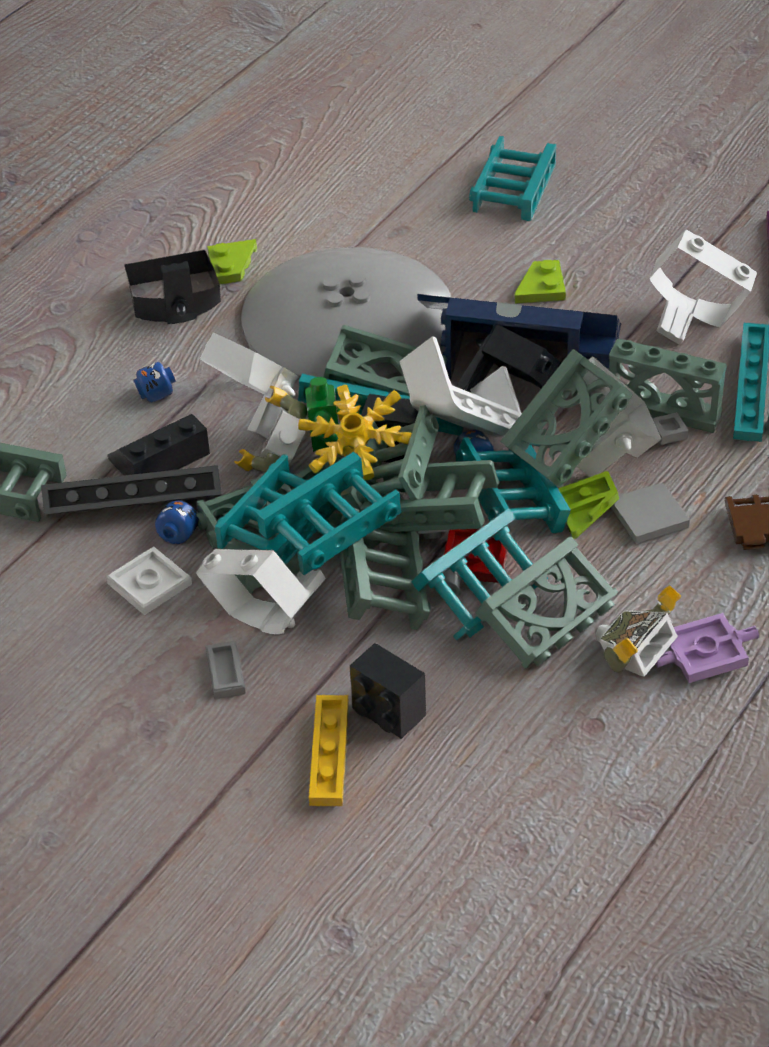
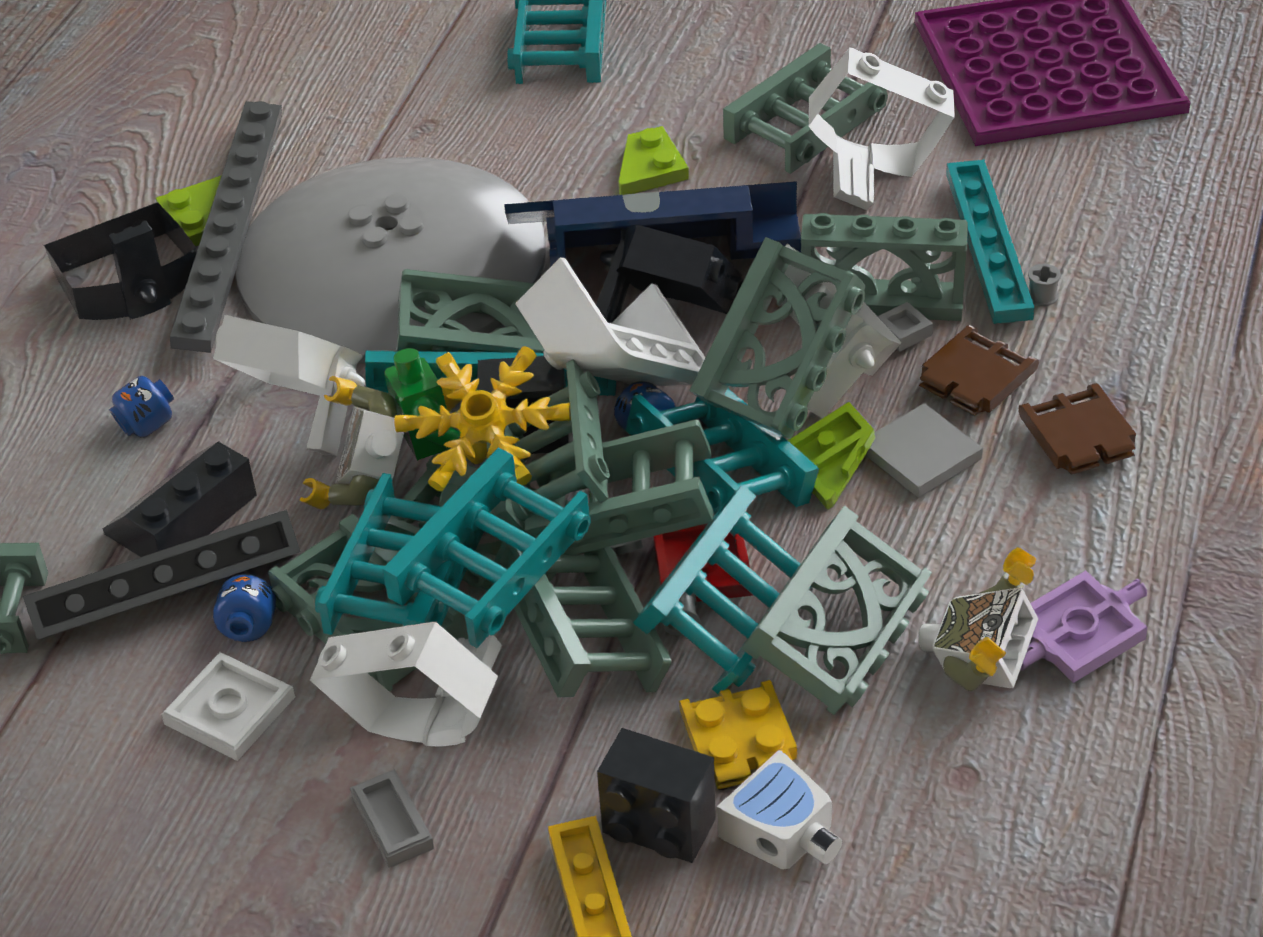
camera: 15 degrees left, 0 degrees up
(247, 271) = (226, 229): none -> dark grey plate
(459, 667) = (738, 731): none -> yellow plate
(462, 721) = (779, 815): none -> torso
(643, 254) = (784, 88): none -> sand green fence
(705, 470) = (974, 375): none -> reddish brown plate

